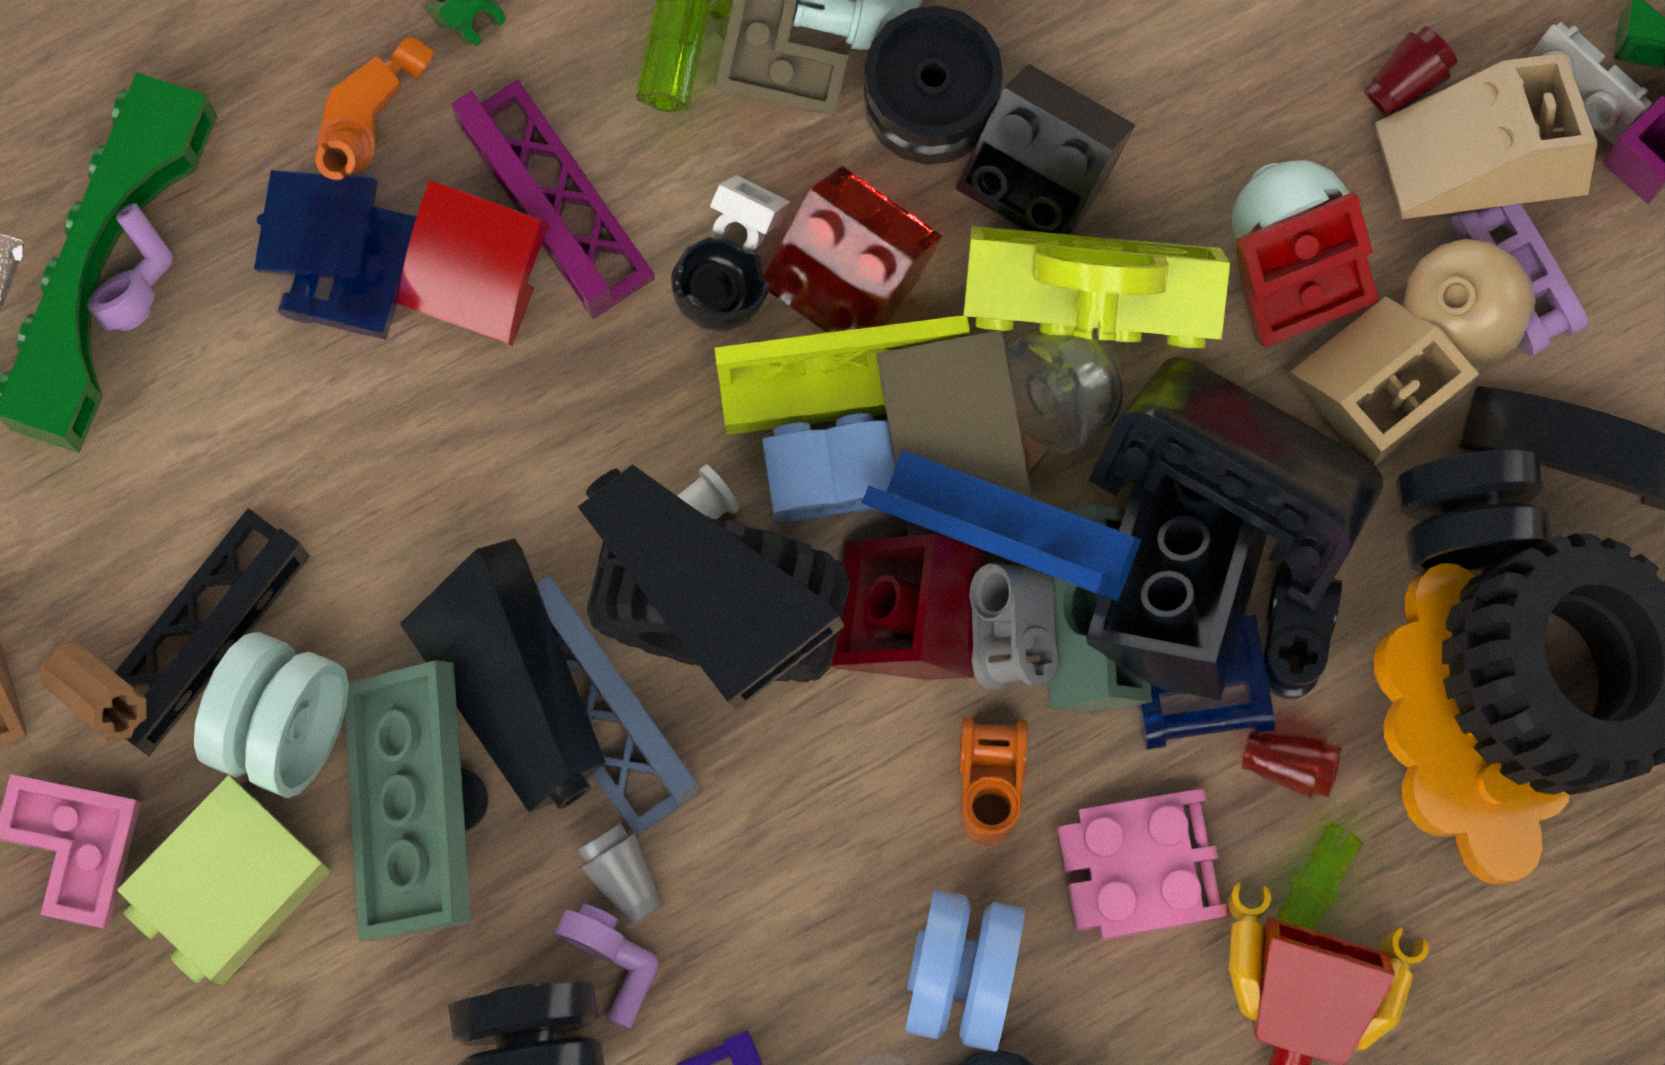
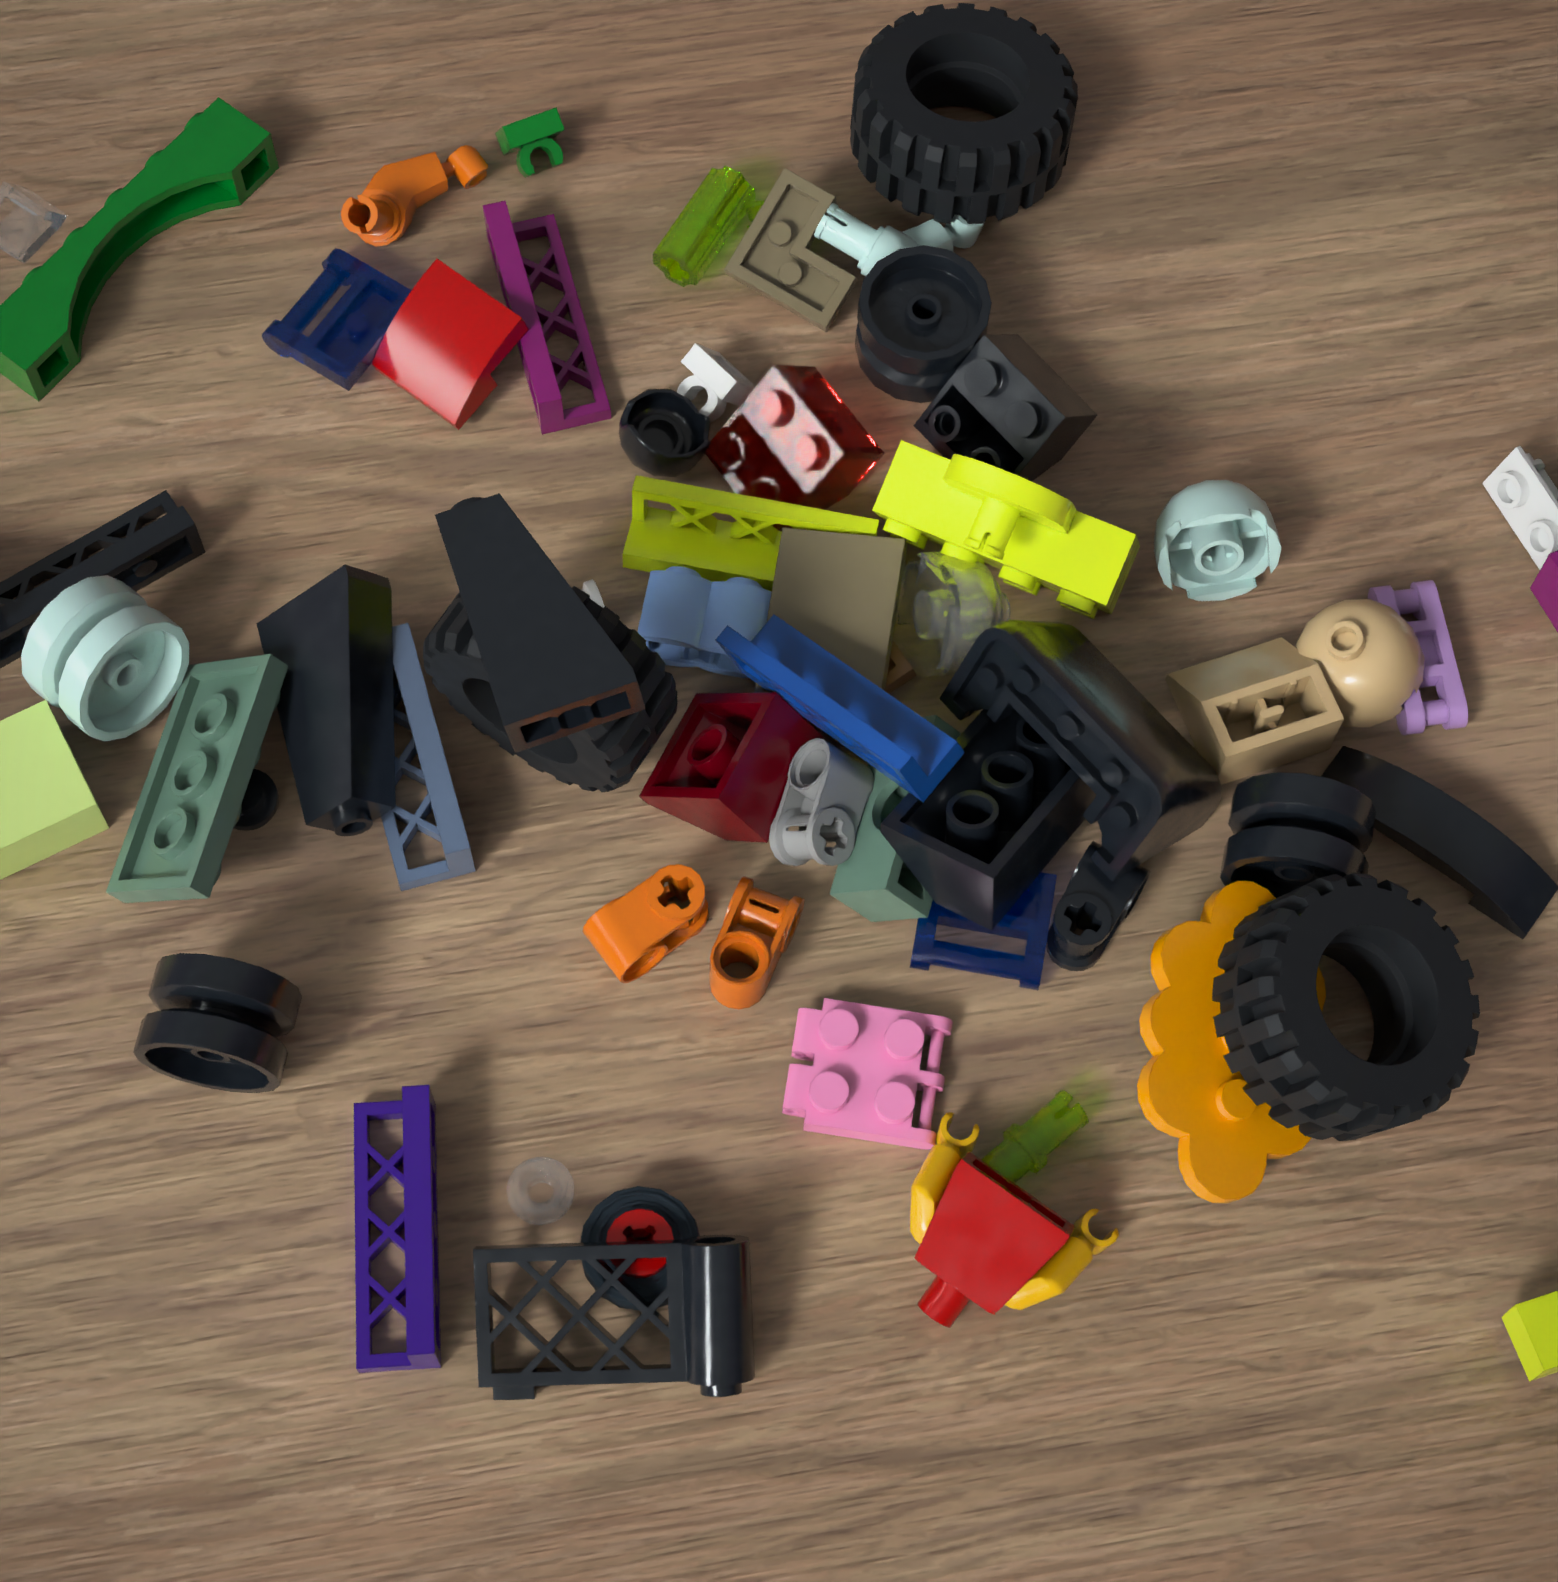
camera: 15 degrees right, 10 degrees down
(126, 298) = (132, 283): lavender plate -> none
(315, 225) = (323, 271): clear blue piece -> none
(594, 934) = (323, 958): lavender plate -> none
(620, 872) = (371, 910): light grey cone -> none
(880, 802) = (641, 926): none -> orange piece
(964, 970) = (654, 1098): light blue wheel -> none
(1294, 761) = (1048, 1023): clear red cone -> none
(1306, 270) = (1212, 582): red slope -> none
(1411, 70) = (1373, 452): dark red cone -> none
(1491, 141) = (1428, 527): tan slope -> none

